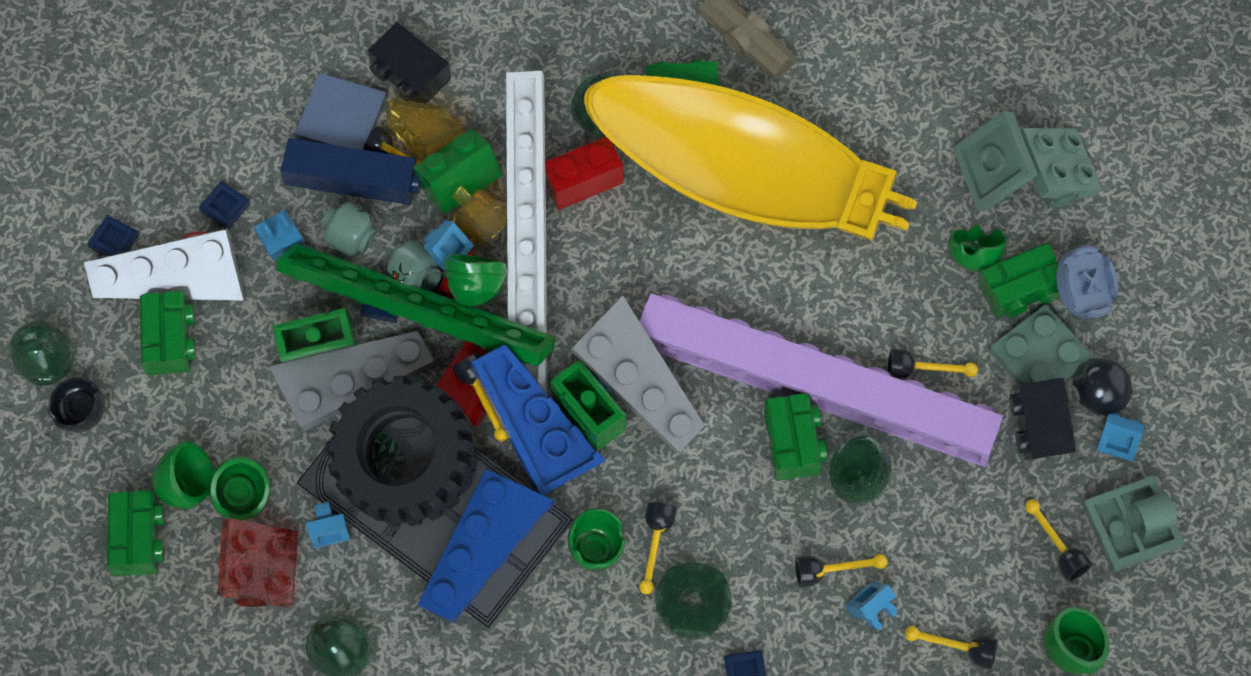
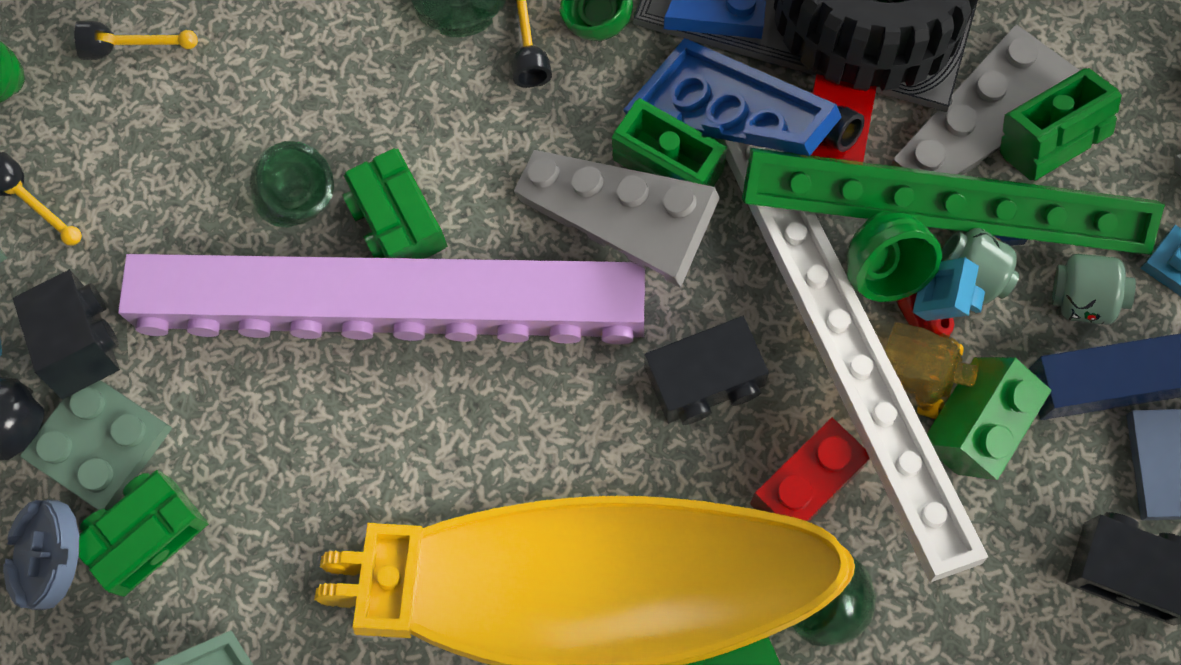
camera: 165 degrees right, 5 degrees up
(382, 142) = (1111, 434): black hinge -> none
(422, 126) = (1062, 467): clear yellow slope -> none
(620, 261) = (706, 371): none -> black brick
(811, 570) = (325, 65): hinge -> none
(870, 601) = (242, 47): dark azure tile -> none
(902, 364) = (279, 359): hinge -> none
(976, 249) = (211, 559): green hair -> none

